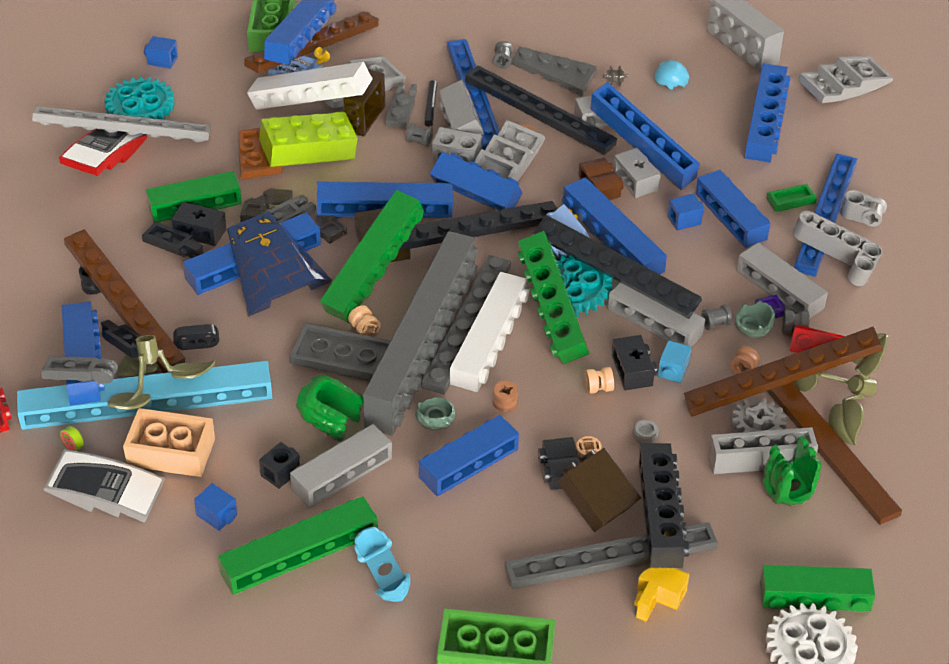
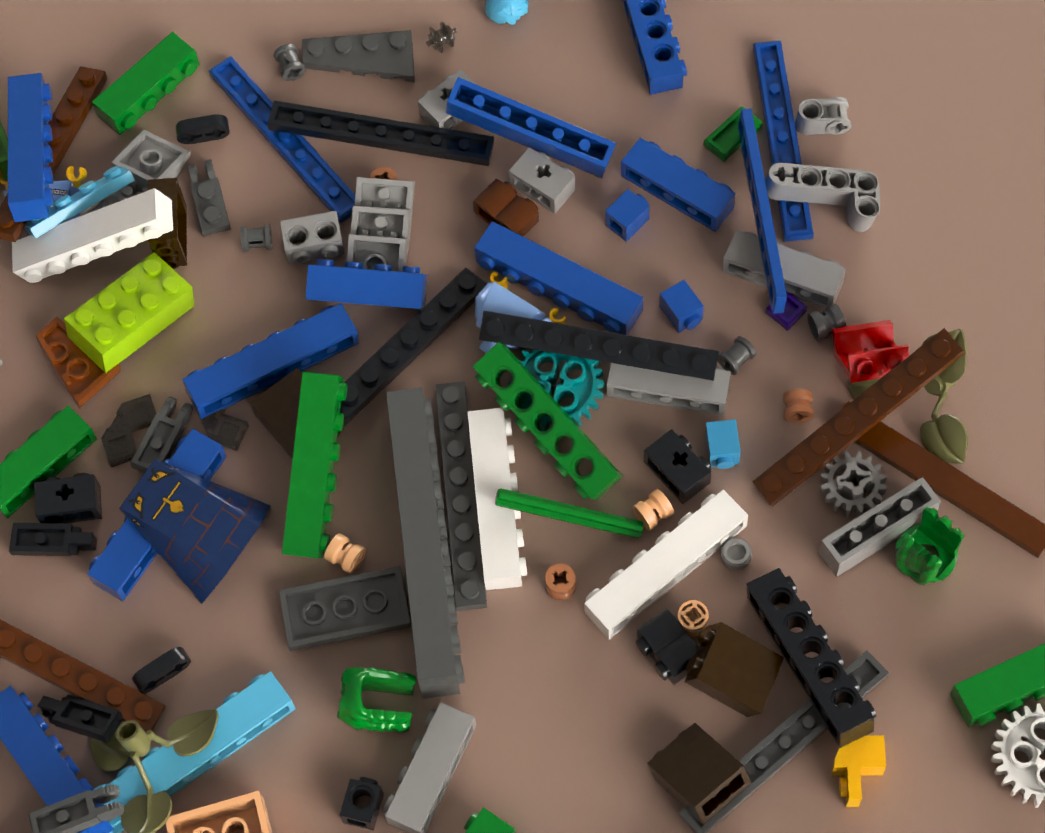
camera: 20 degrees left, 20 degrees up
(302, 65) = (89, 194): none -> medium azure plate
(401, 33) = (146, 83): none -> green brick
(421, 68) = (202, 129): none -> black beam
(429, 116) = (241, 177): black bar -> none
(435, 413) = (497, 646): sand green hair -> none
(460, 108) = (288, 180): light grey brick -> none
(468, 455) = (563, 685): blue brick -> none
(534, 540) = (699, 773): none -> dark brown brick
(536, 355) = (569, 513): none -> green axle
(589, 414) = (665, 564): none -> white brick
(693, 274) = (681, 306): none -> blue brick
(755, 319) = (782, 340): sand green hair -> none
(781, 237) = (762, 212): none -> blue tile

